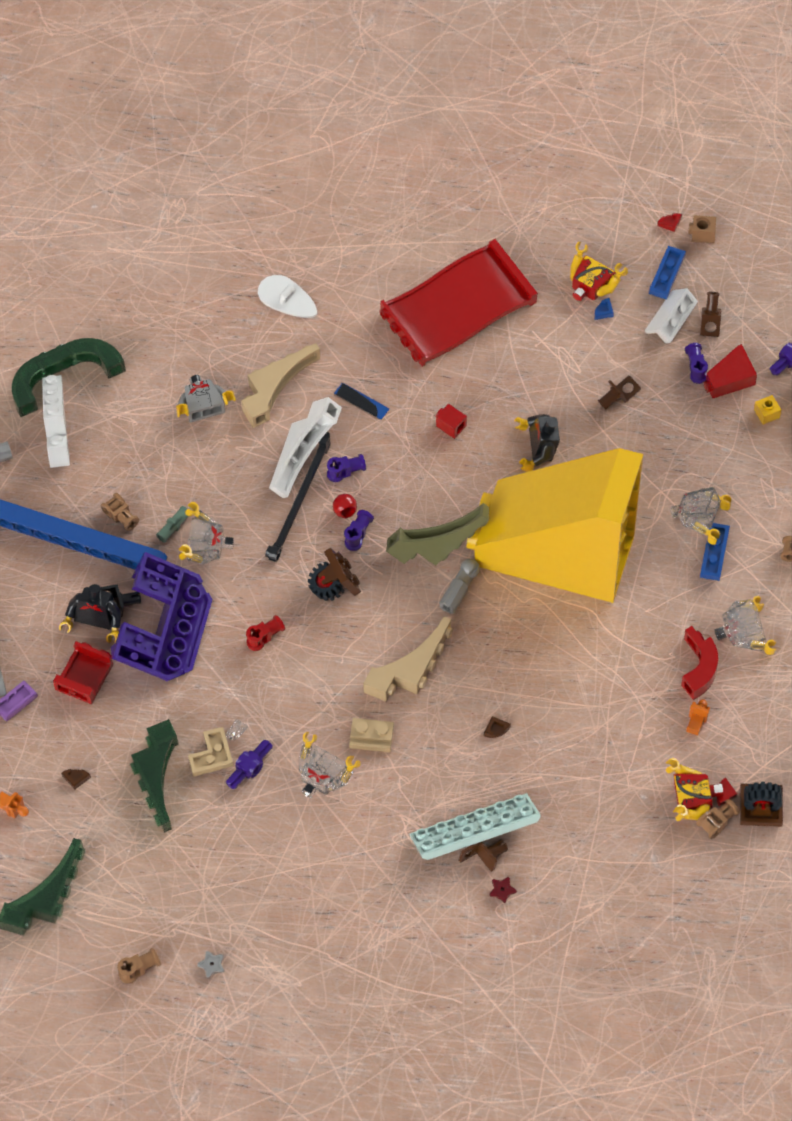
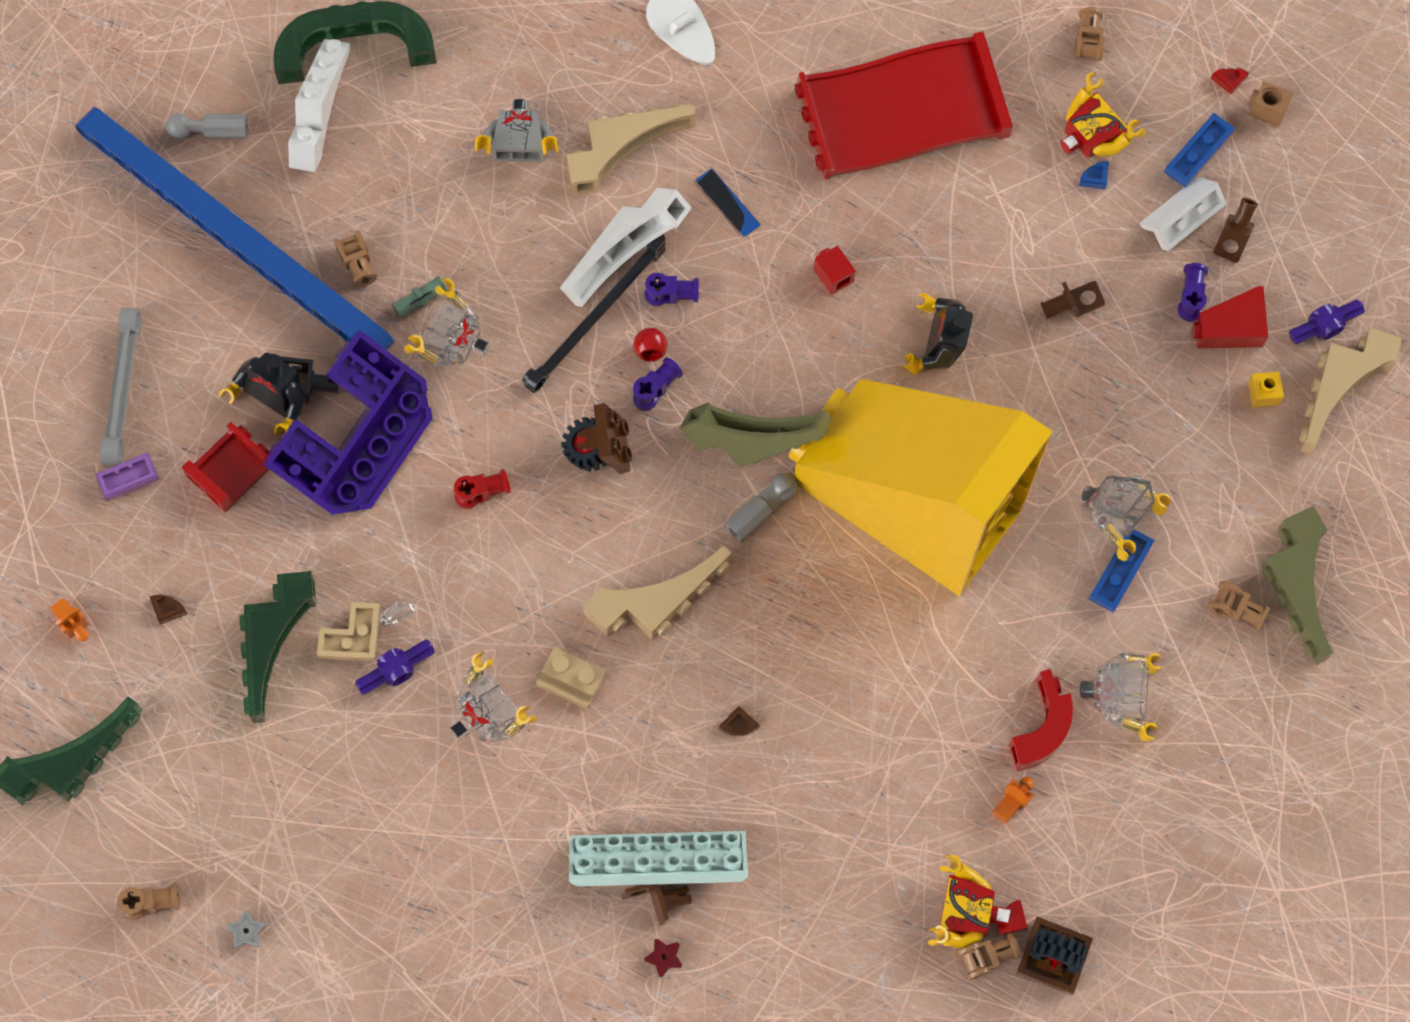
camera: 15 degrees right, 10 degrees up
(567, 222) = (1089, 37): none -> medium nougat connector

